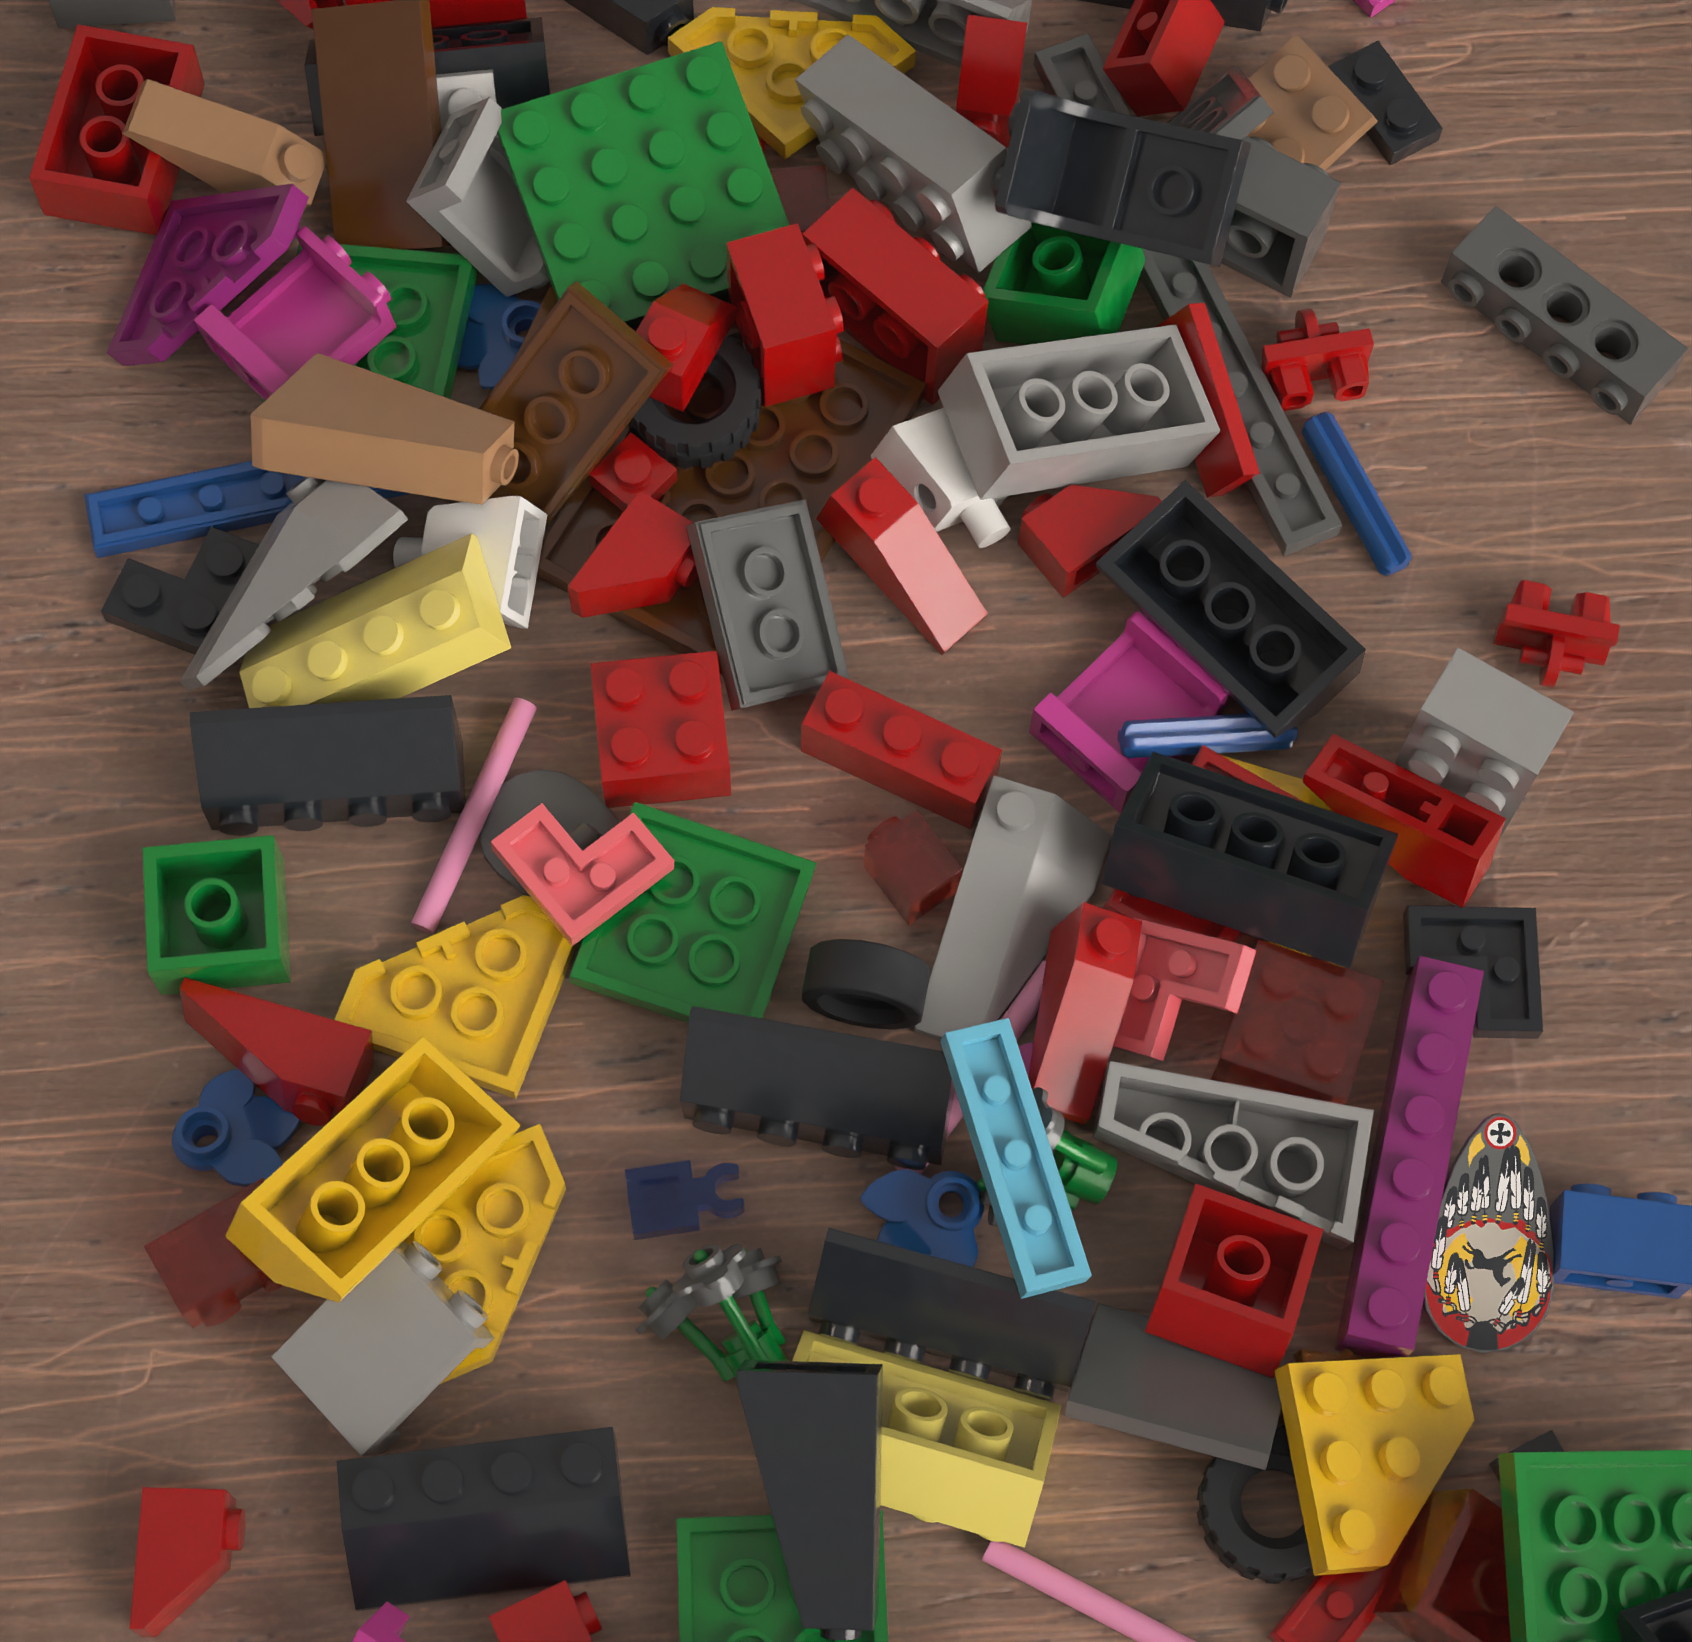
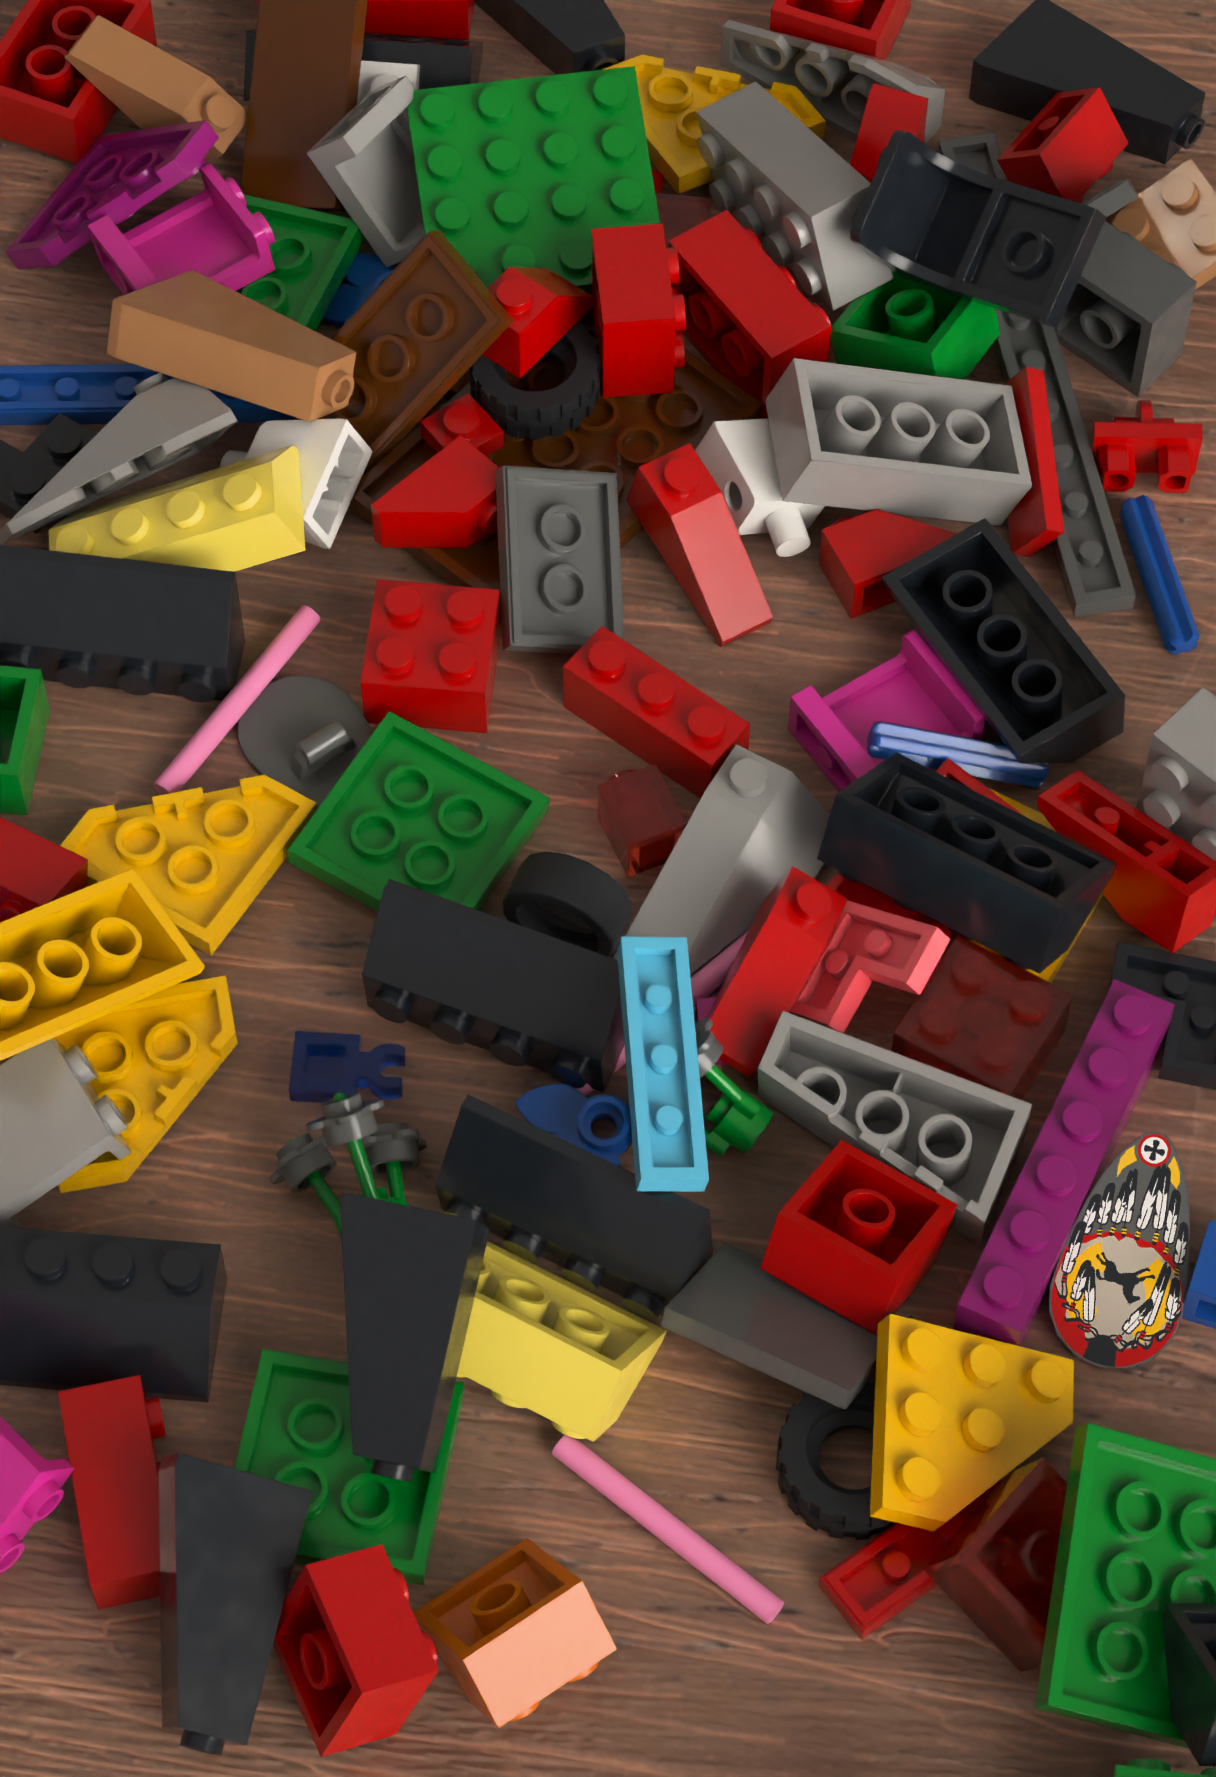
camera: 15 degrees right, 10 degrees down
(579, 886) = (318, 768): coral plate -> none

